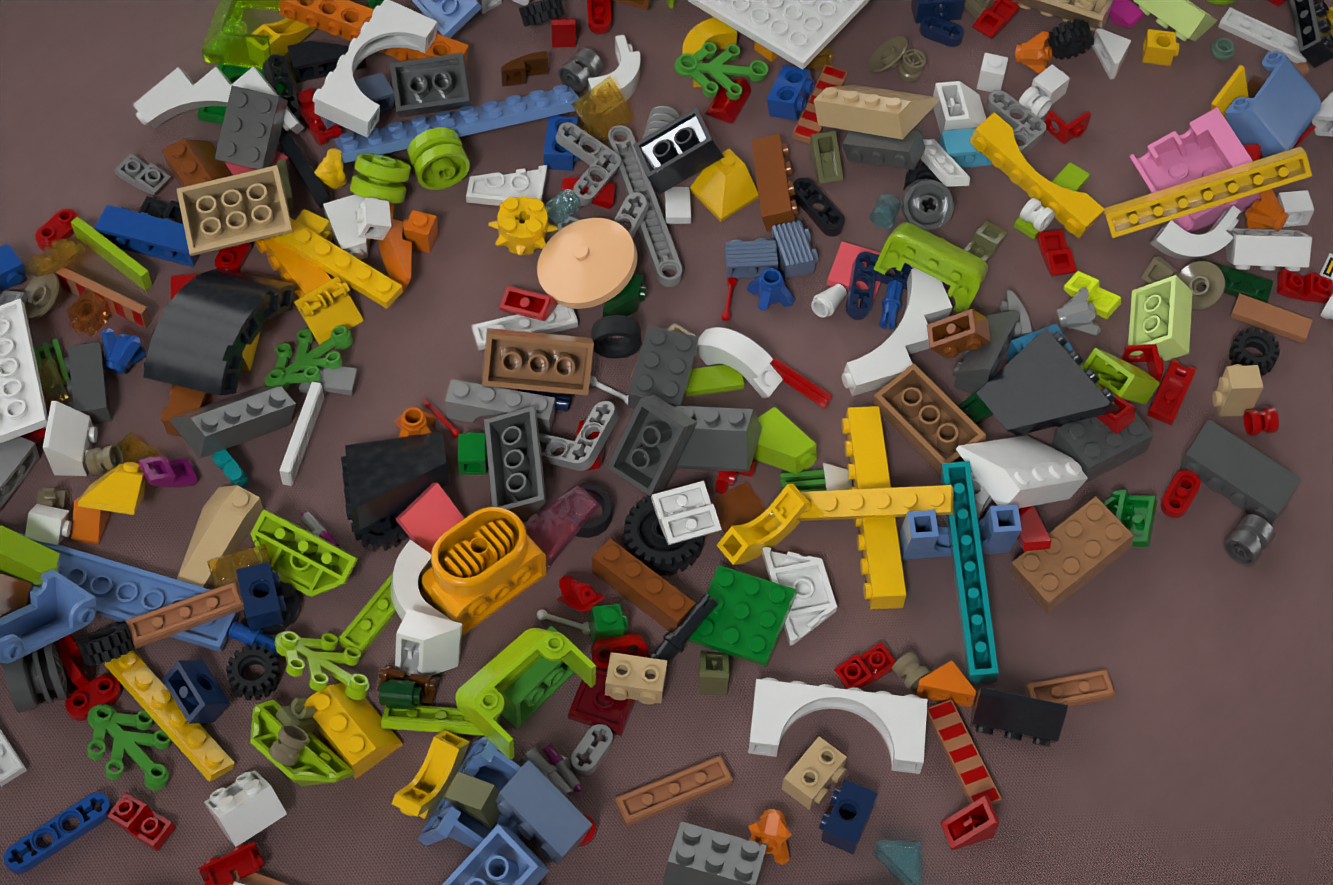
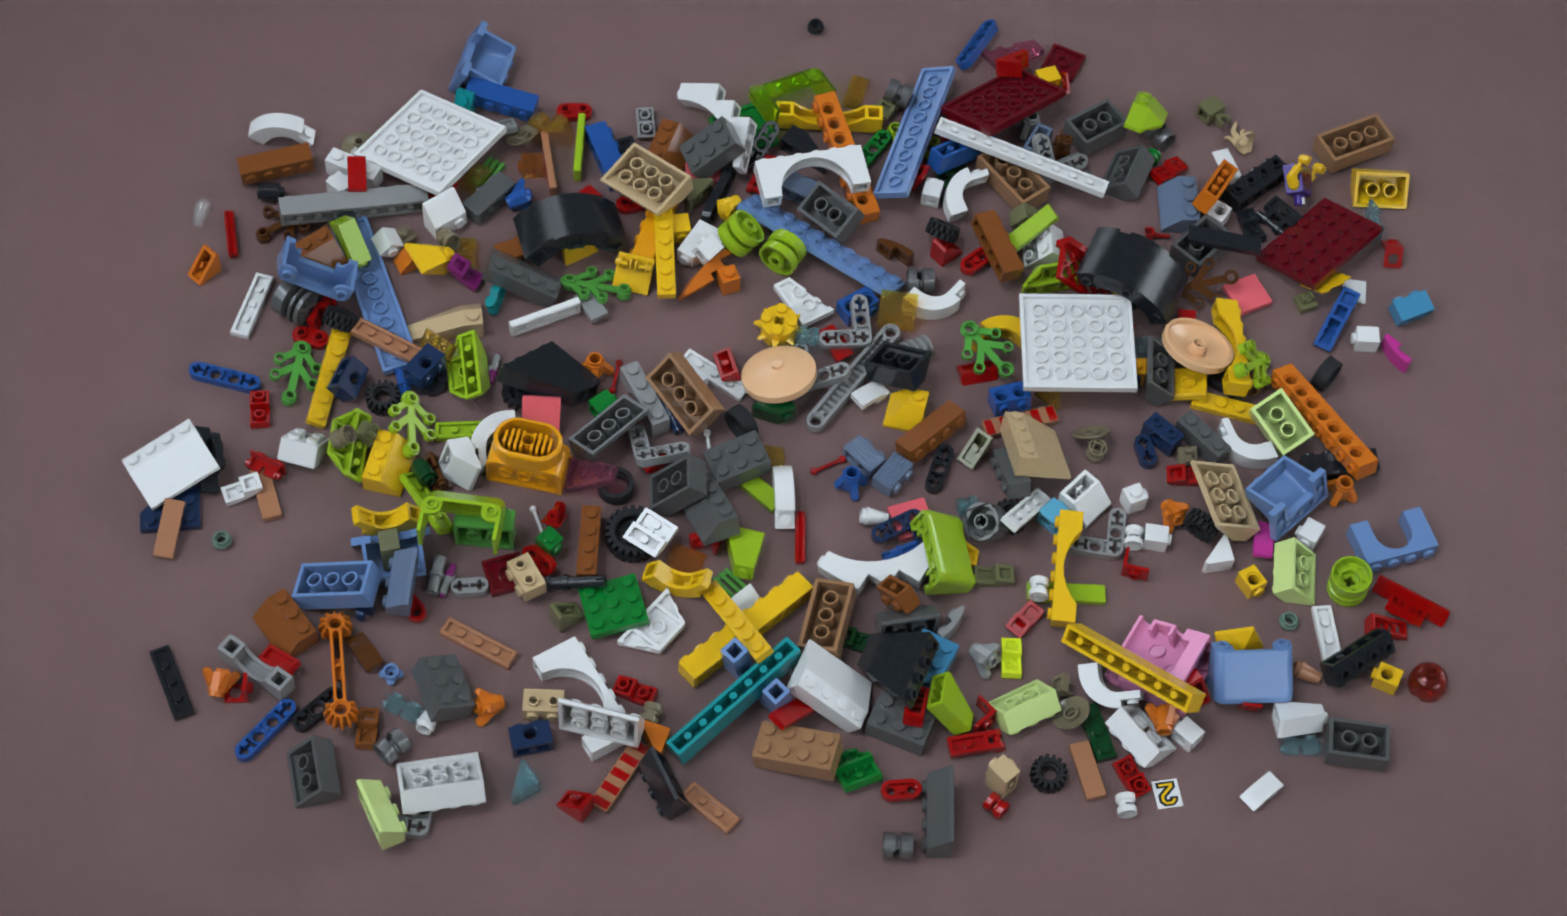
camera: 50 degrees right, 0 degrees up
(903, 720) = (600, 722): none -> white slope

